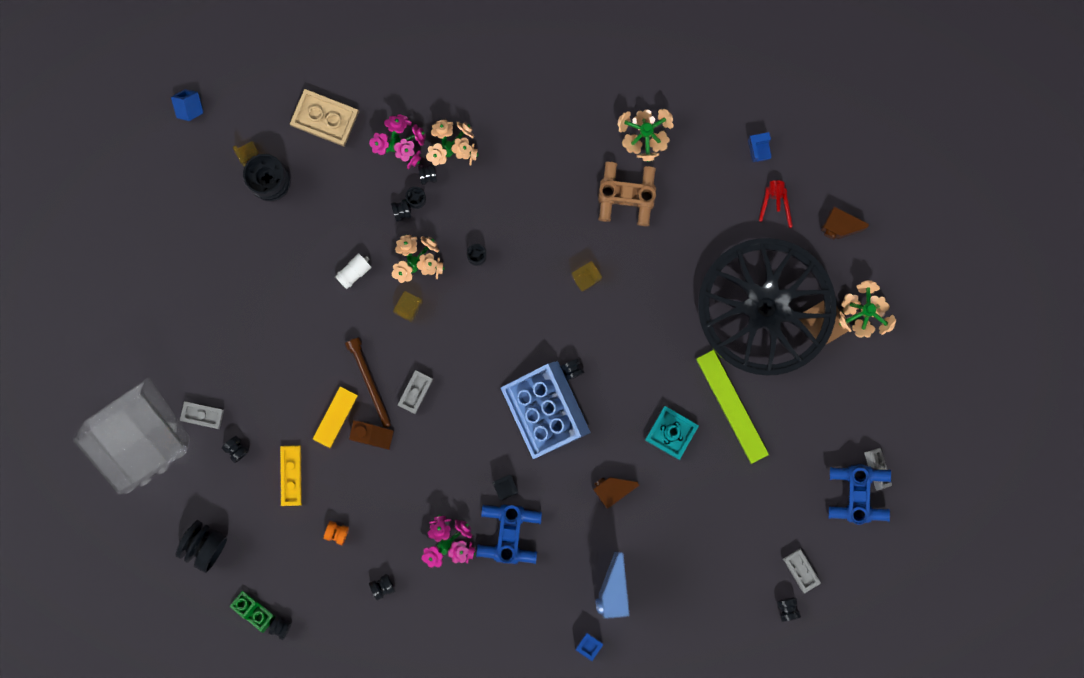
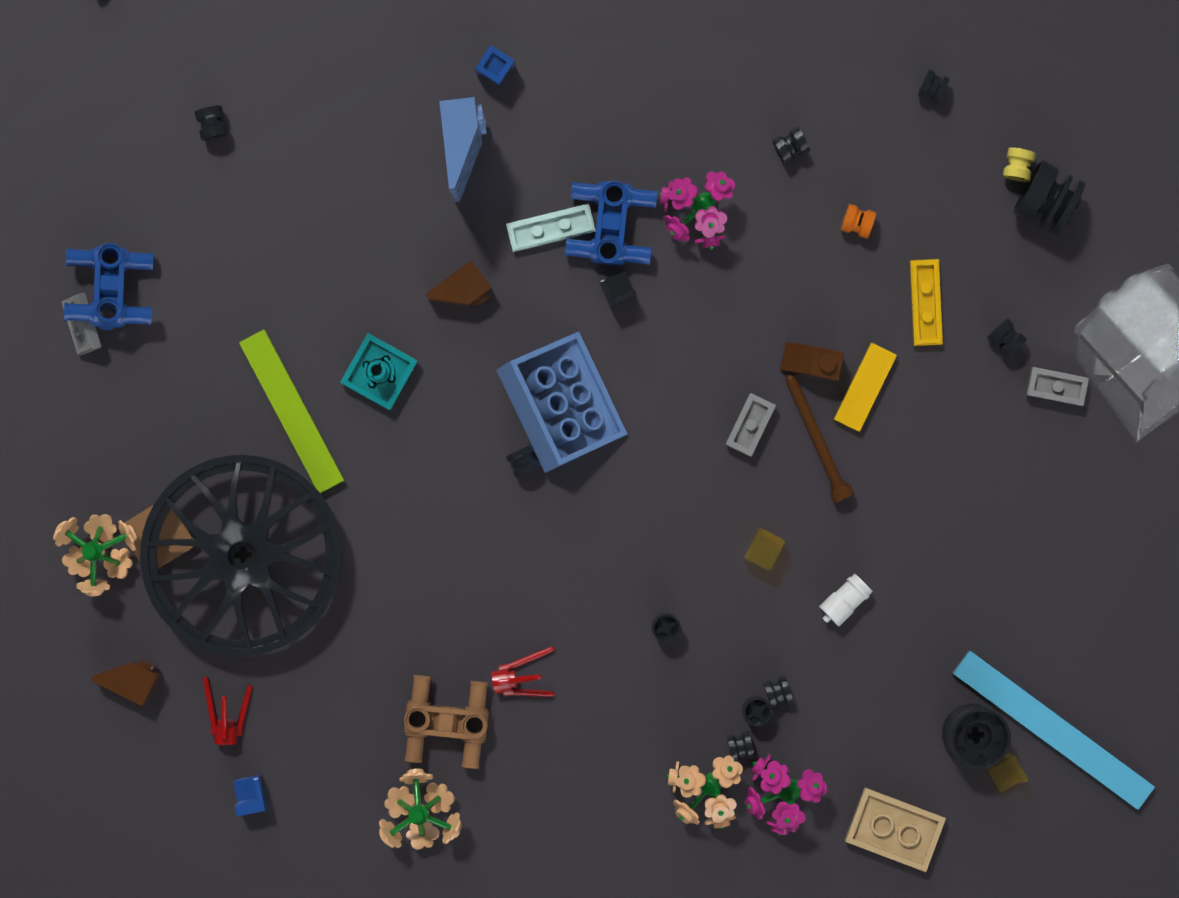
camera: 175 degrees left, 5 degrees up
(187, 105) = (1098, 845): blue panel -> none
(214, 182) = (1053, 730): none -> medium azure tile
(221, 572) = (1019, 163): none -> light yellow wheel
(252, 611) = (973, 109): green slope -> none
(425, 263) = (742, 609): light nougat plant -> none
(551, 532) = (550, 227): none -> light aqua tile
(585, 219) = (505, 680): none -> red plant
(586, 276) = (504, 598): clear yellow panel -> none
(801, 571) = (192, 177): light grey plate -> none

